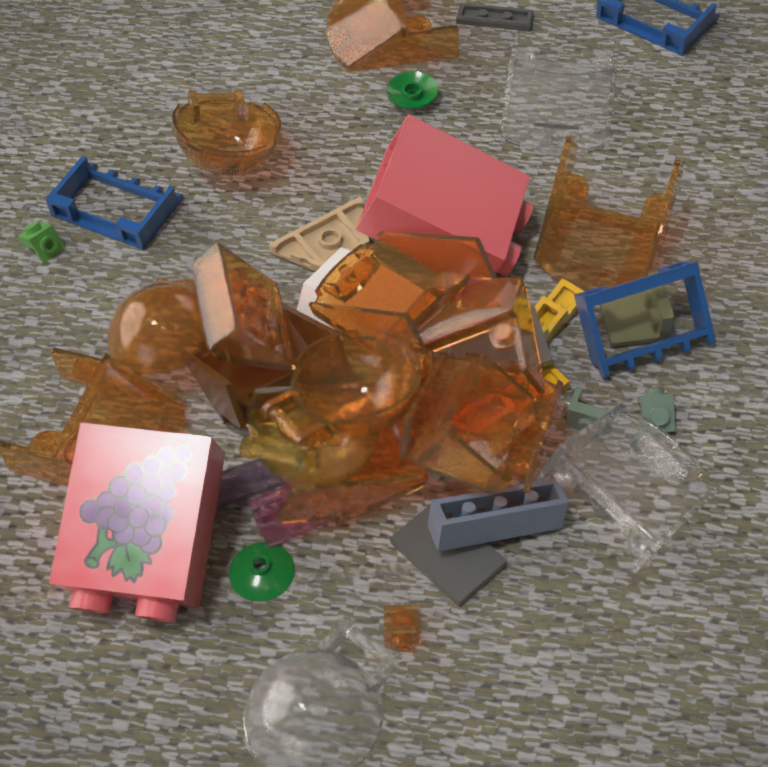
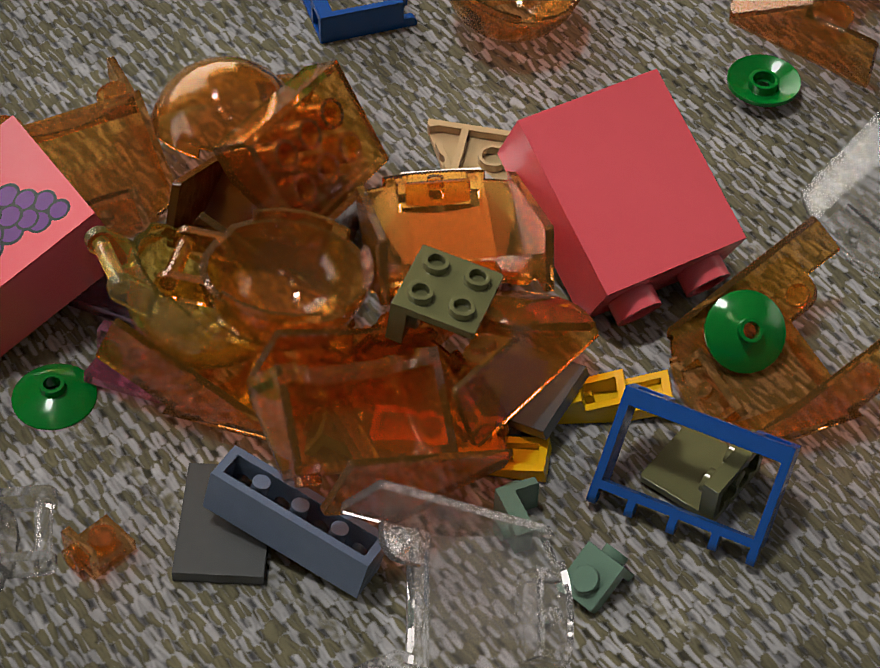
camera: 40 degrees right, 5 degrees down
(451, 323) = (442, 293): none -> olive bracket
(575, 227) = (726, 335): none -> green dish

